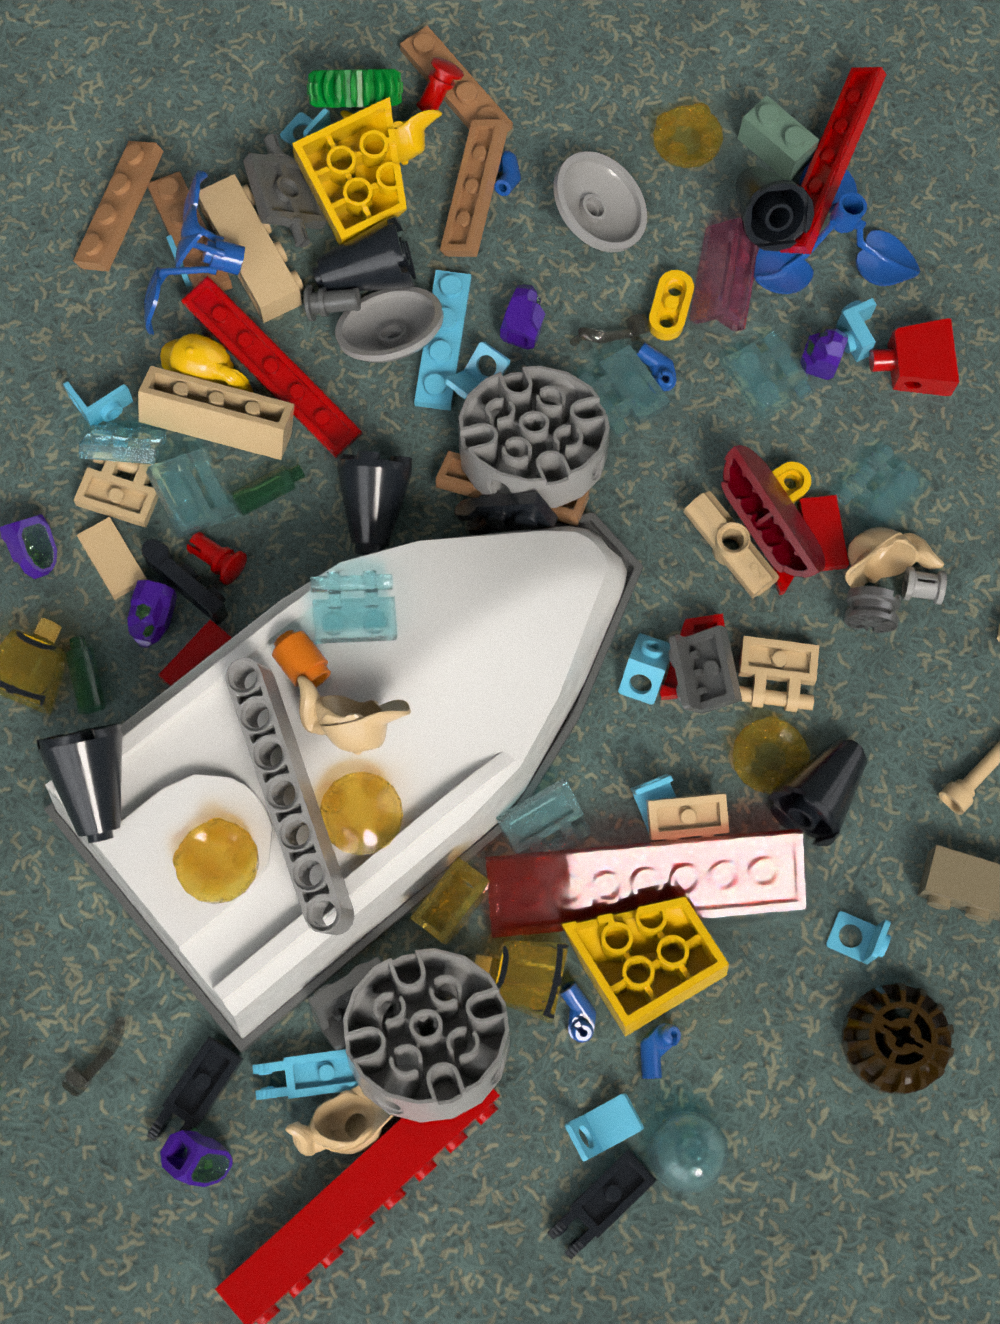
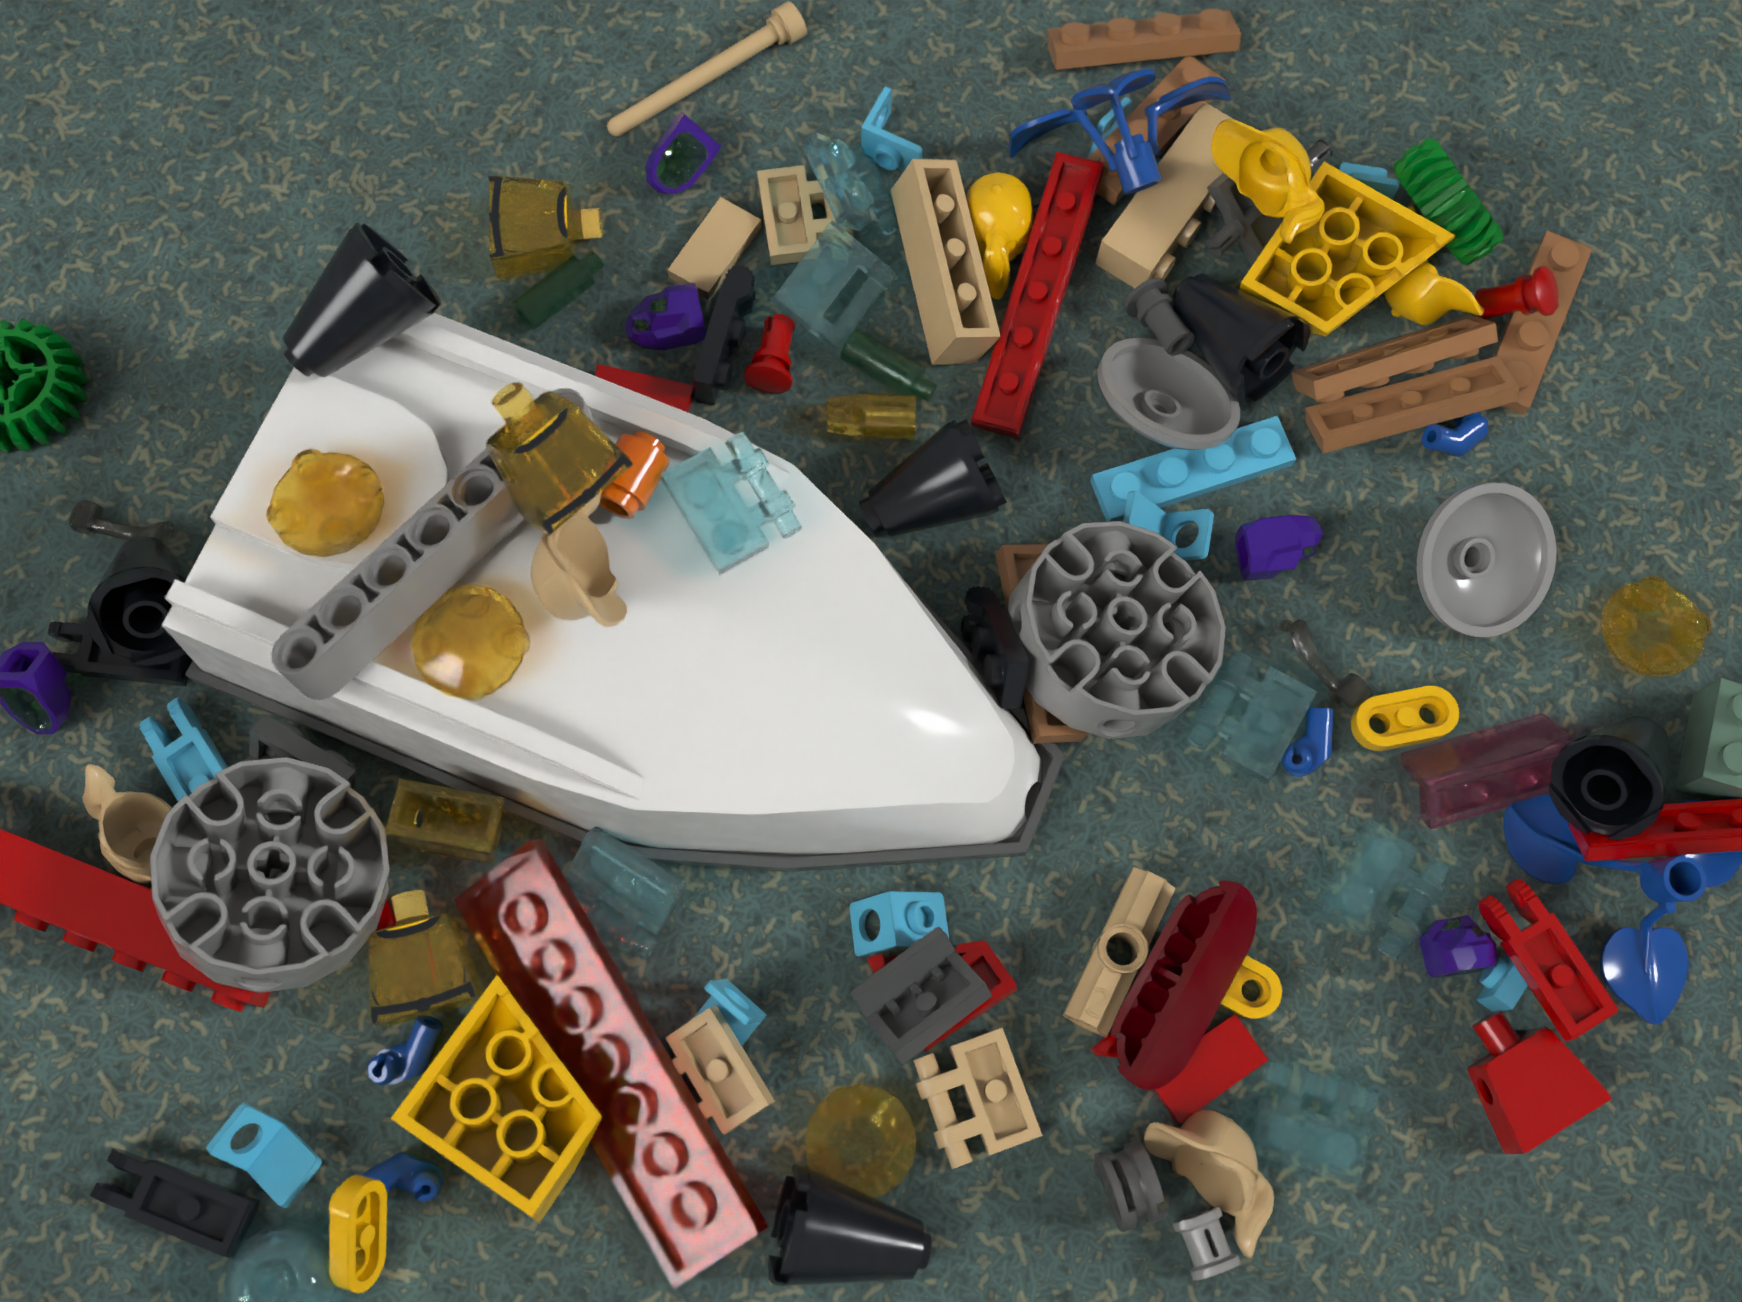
camera: 65 degrees right, 0 degrees up
(179, 1047) = (131, 603): none -> black cone
(283, 691) = (551, 456): none -> clear yellow torso
(285, 177) = (1271, 171): none -> yellow hair
(298, 514) = (872, 415): none -> clear yellow hinge
(436, 180) = (1408, 354): none -> medium nougat plate
(670, 1080) = (357, 1233): none -> yellow plate
(860, 306) = (1549, 962): none -> red hinge

